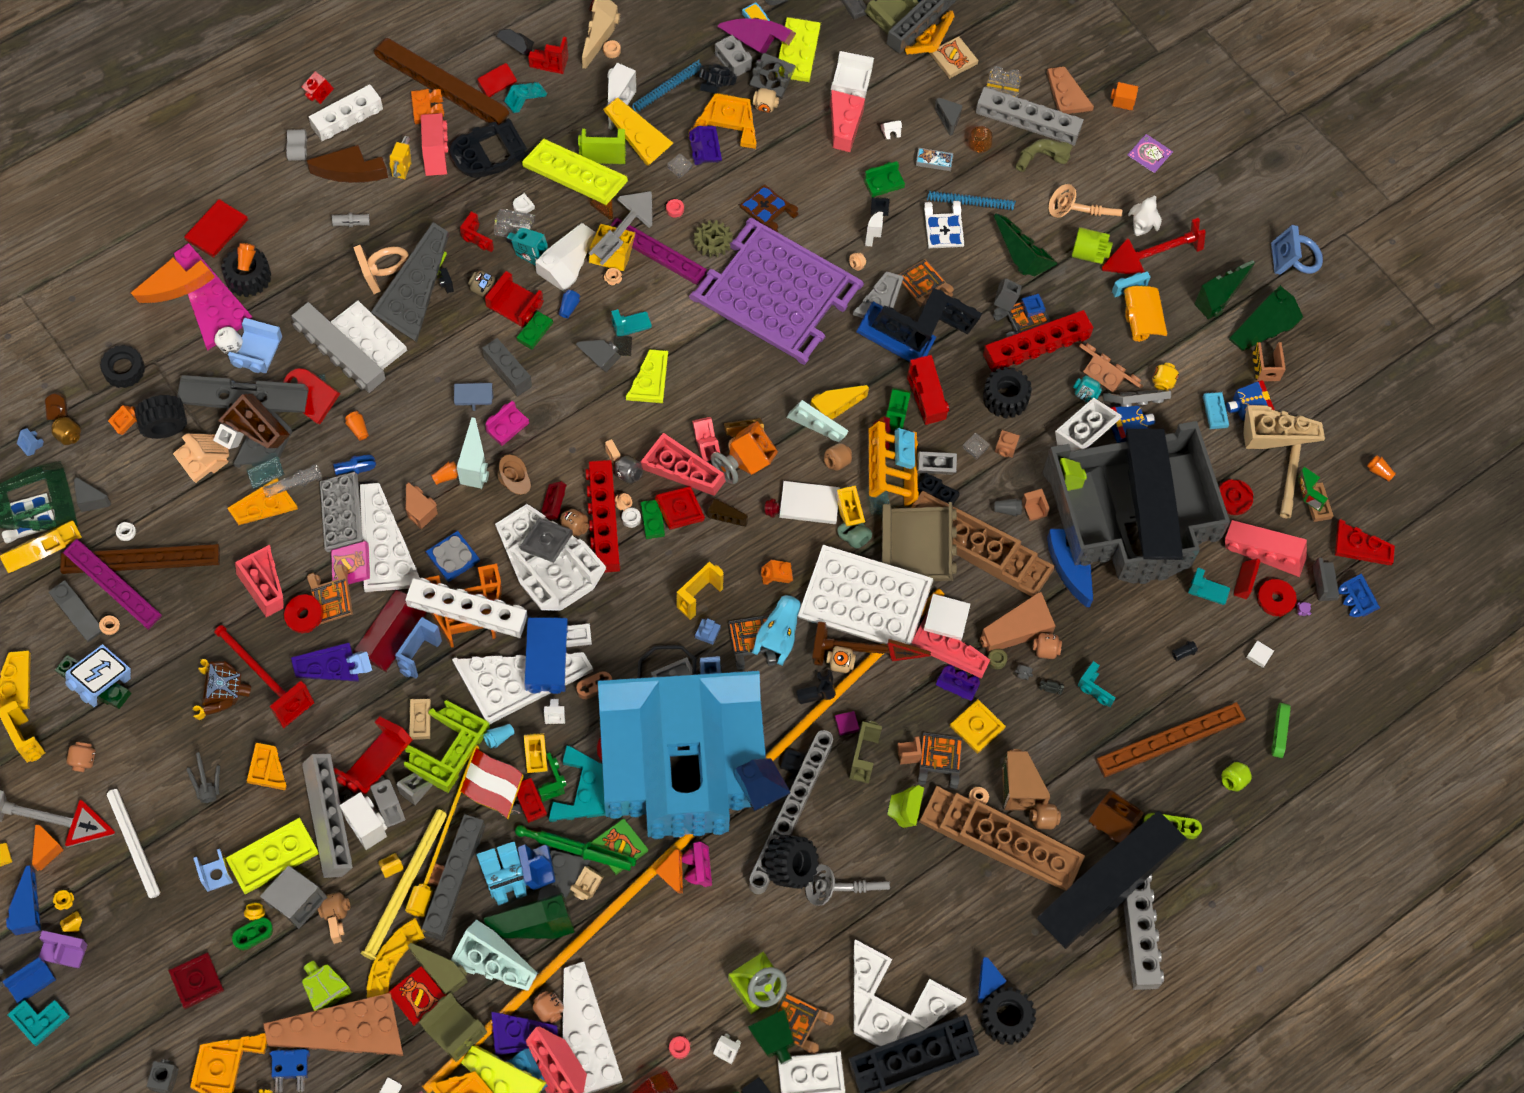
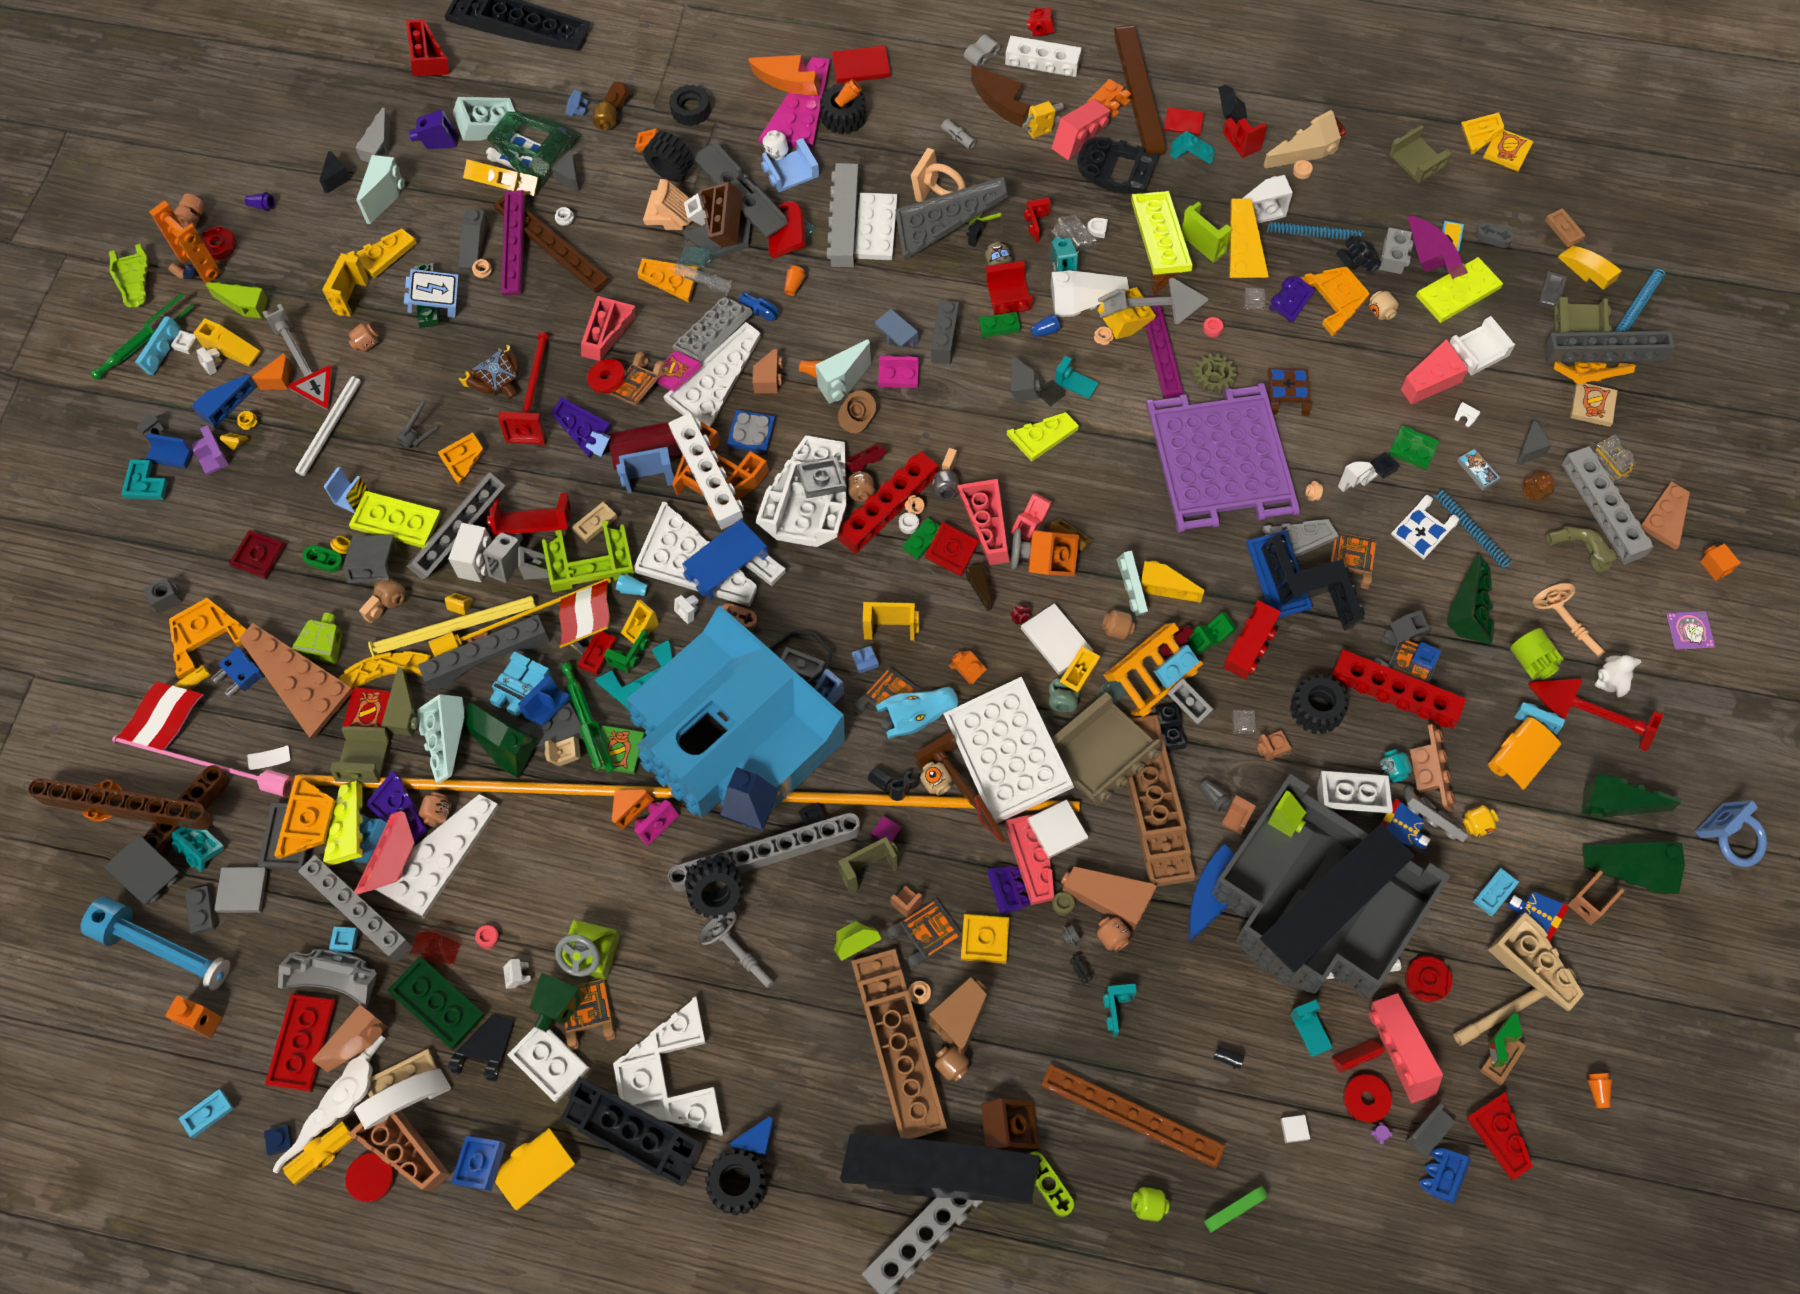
camera: 55 degrees right, 0 degrees up
(767, 59) = (1414, 302): dark grey piece -> none

